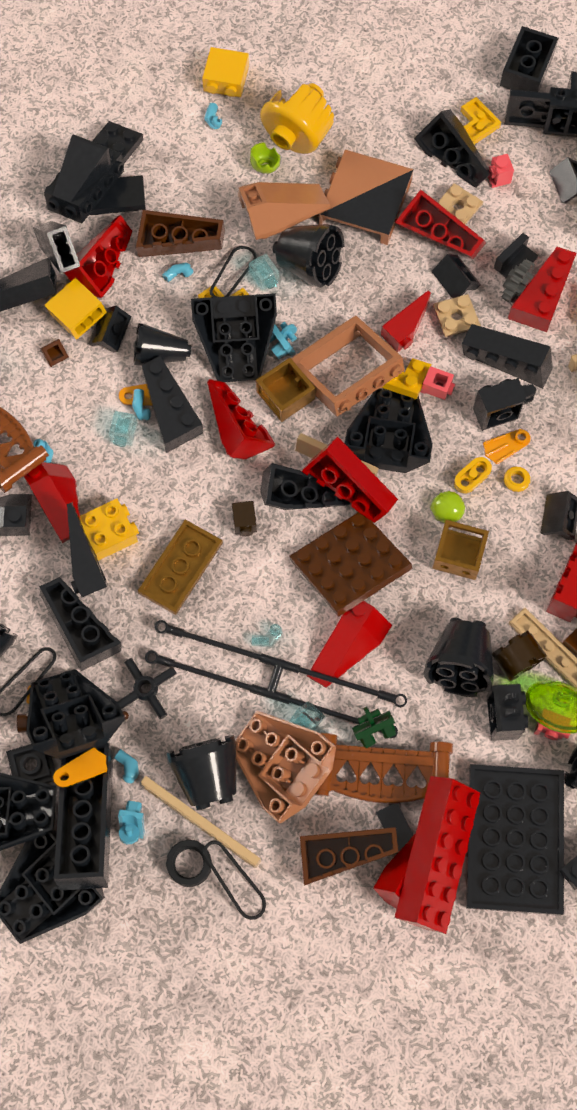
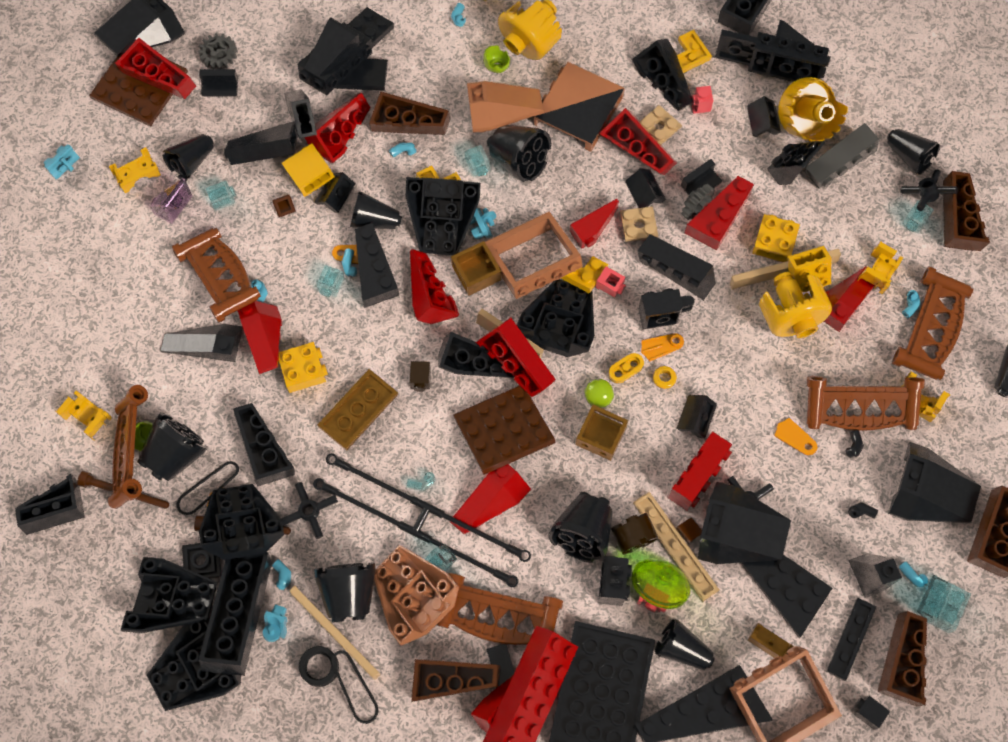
camera: 10 degrees right, 0 degrees up
(81, 768) = (240, 570): light orange piece -> none
(85, 567) = (275, 400): black wedge -> none
(224, 266) = (457, 136): black piece -> none
(372, 723) = (497, 571): dark green hips -> none

